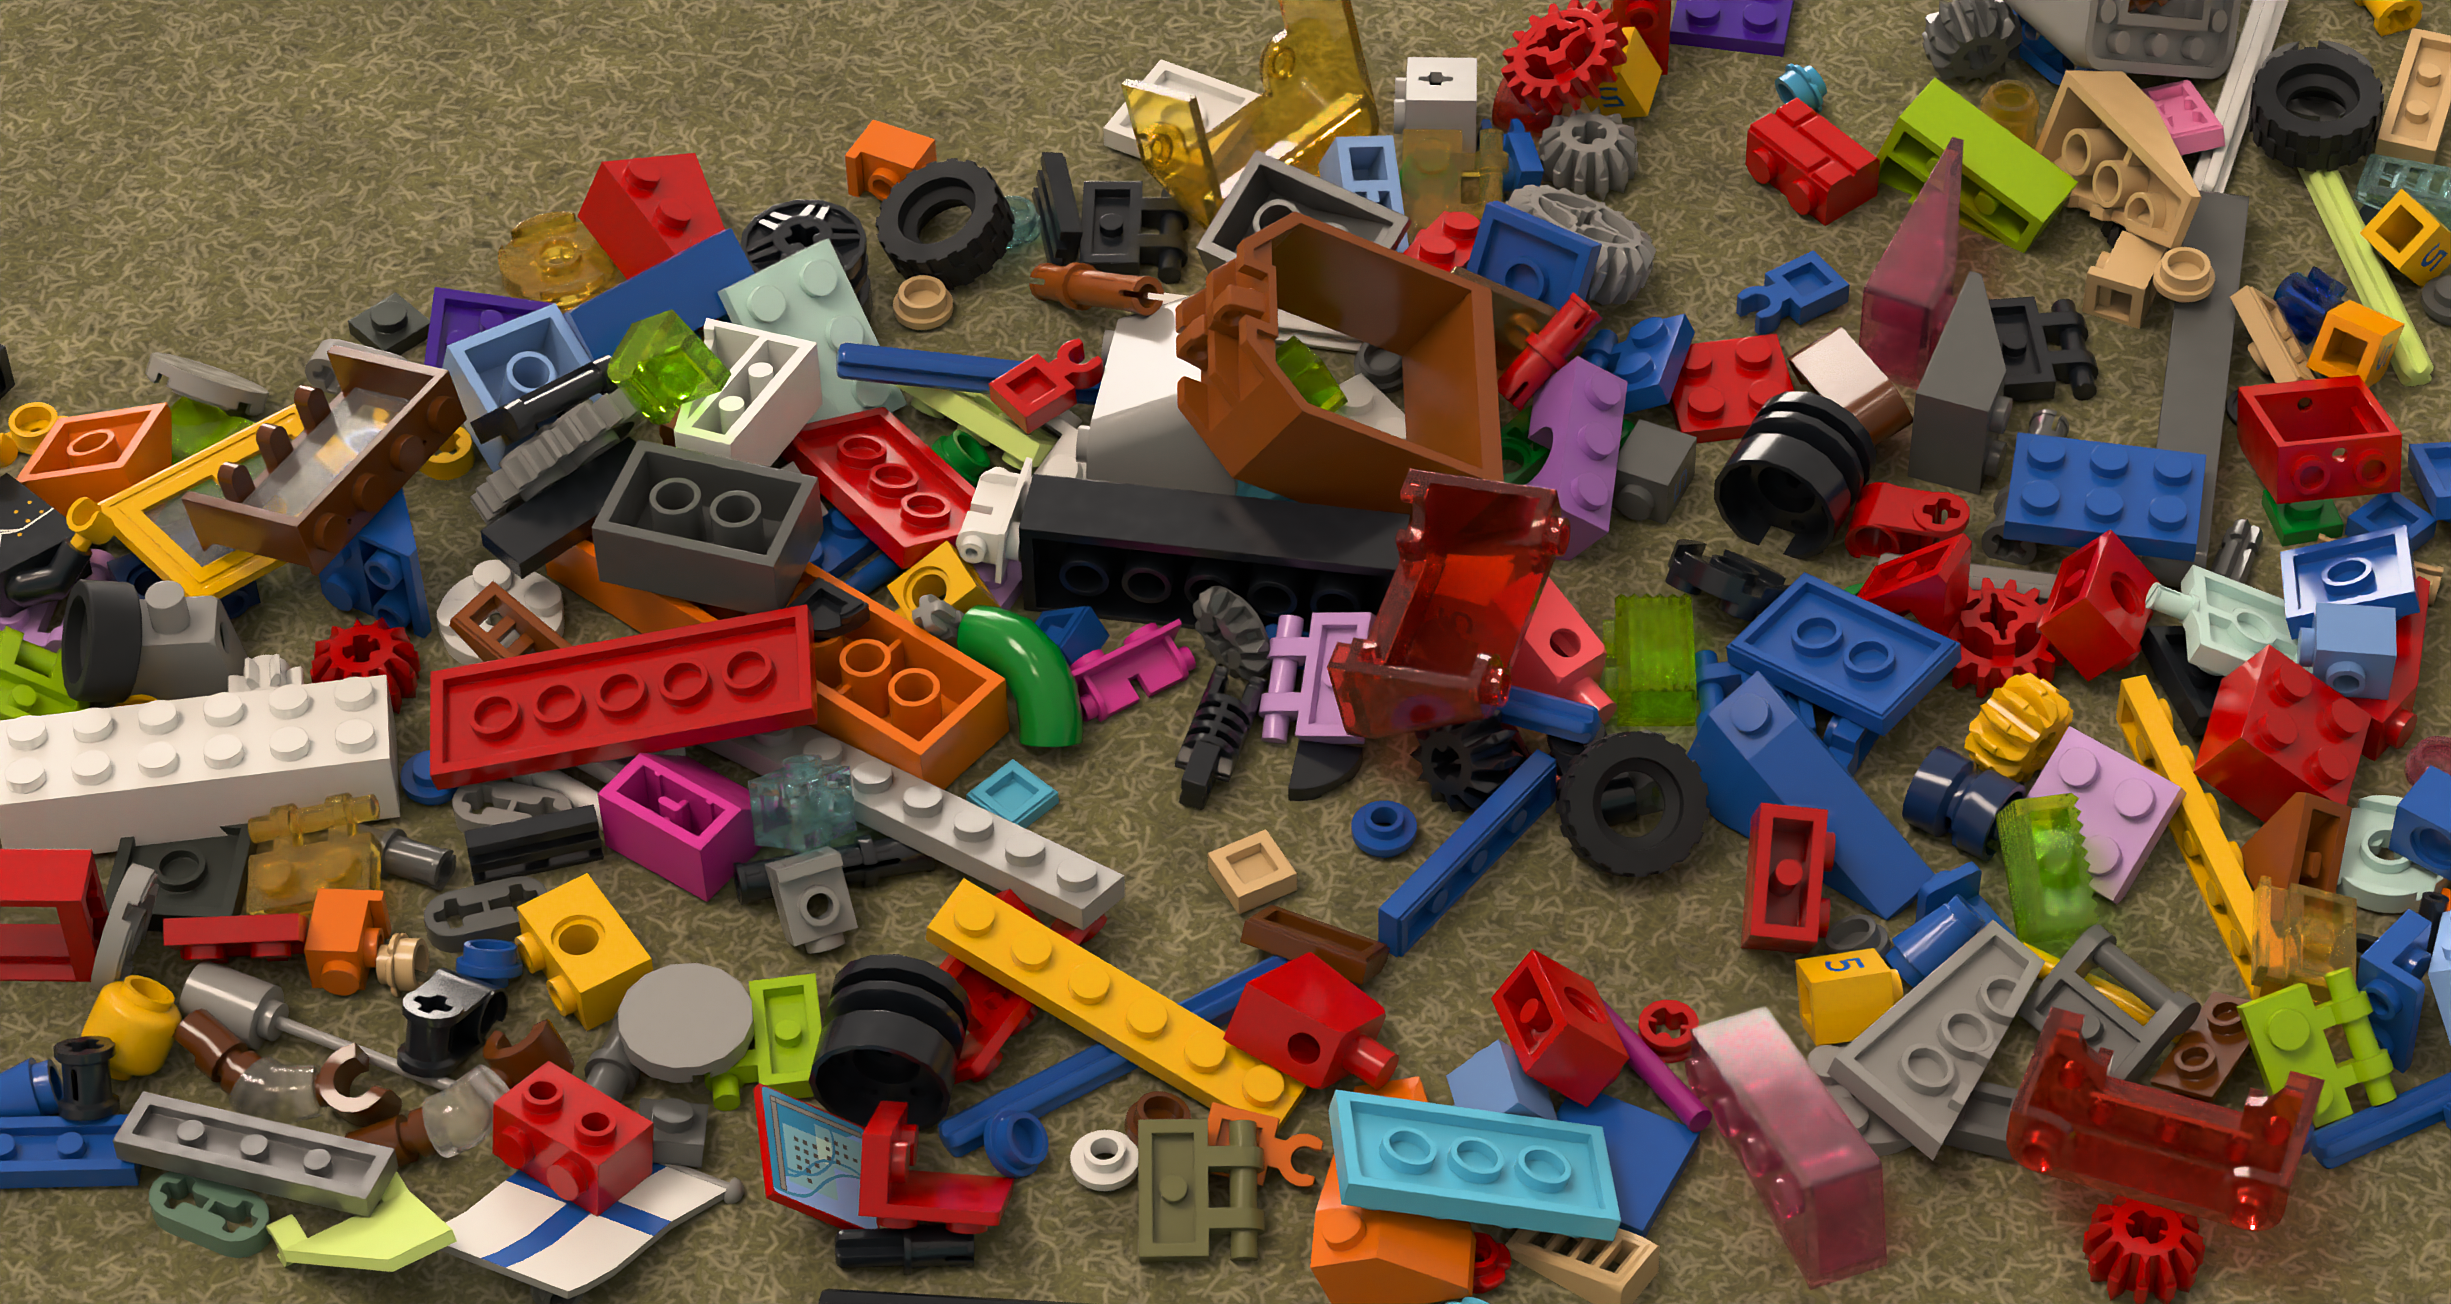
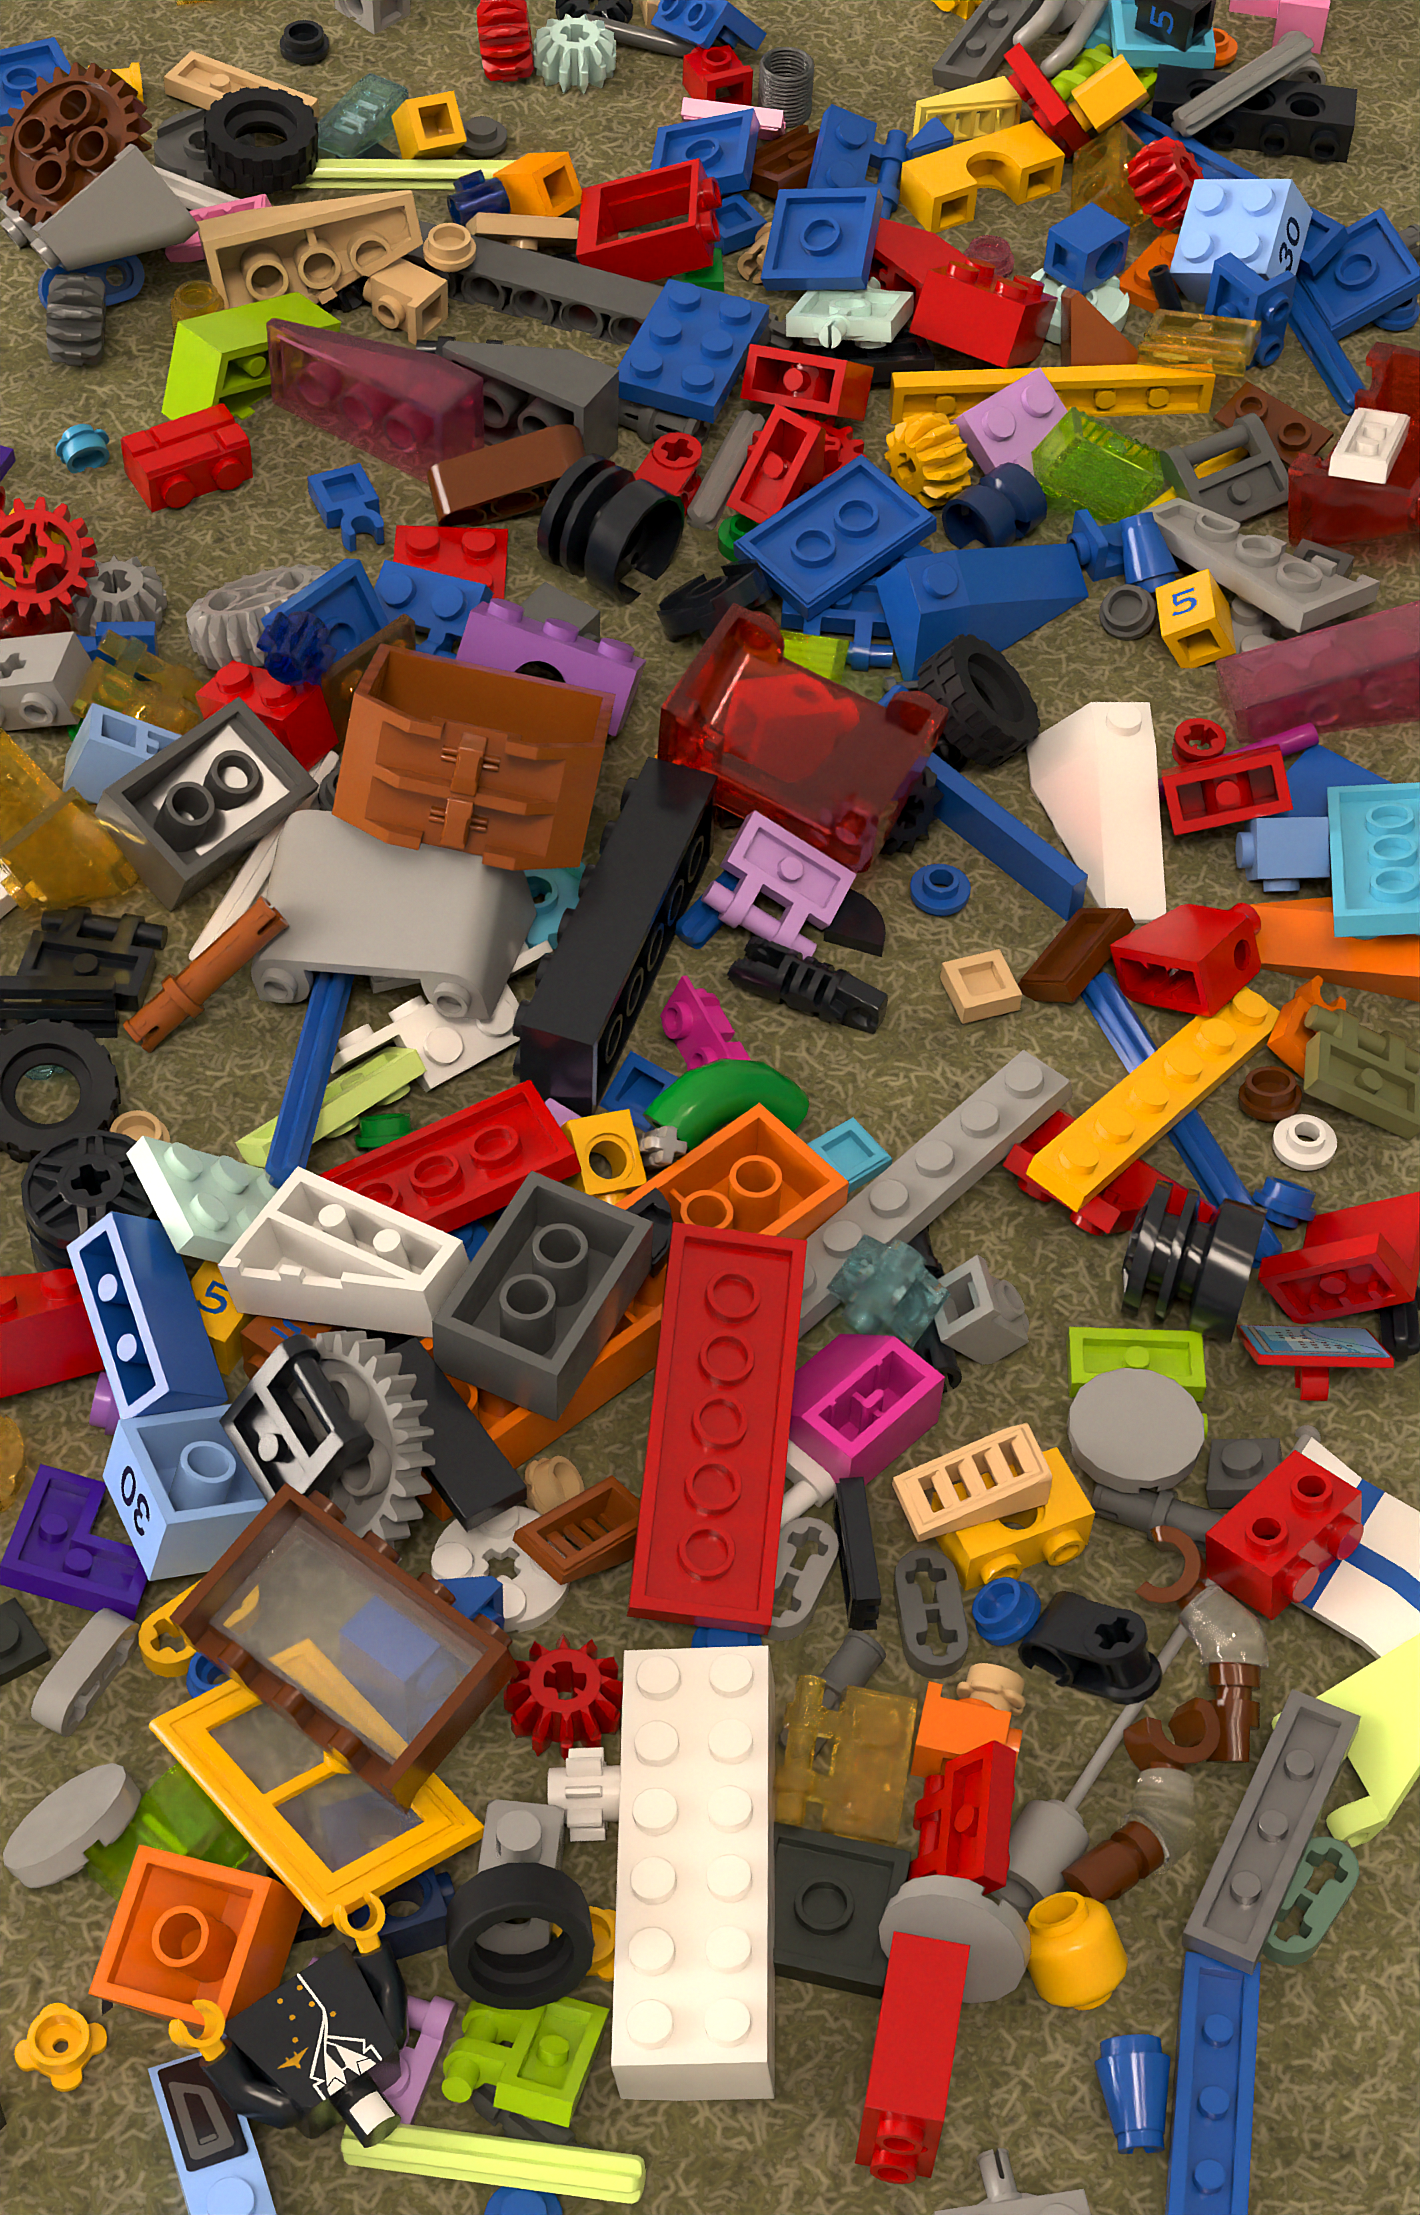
camera: 85 degrees left, 5 degrees up
(86, 1078) = (1151, 2006): black bush -> none
(586, 615) = (551, 1483): none -> tan plate
(601, 921) = (992, 1454): none -> tan slope
(665, 366) = (335, 1297): clear neon green brick -> none
(994, 518) = (561, 1079): white hinge -> none
(1043, 390) = (357, 1027): red plate -> none
(1232, 632) = (680, 950): dark grey gear -> none
(1457, 228) = (296, 648): none -> clear blue gear
(1547, 351) = (431, 621): red pin -> none
(1596, 933) = (1103, 799): none -> white wedge
(1786, 878) = (1084, 620): red brick -> none
(2133, 1089) = (1369, 445): none -> white tile
(2289, 1036) = (1294, 365): lime plate -> none
(2351, 648) = (916, 242): medium blue brick -> none

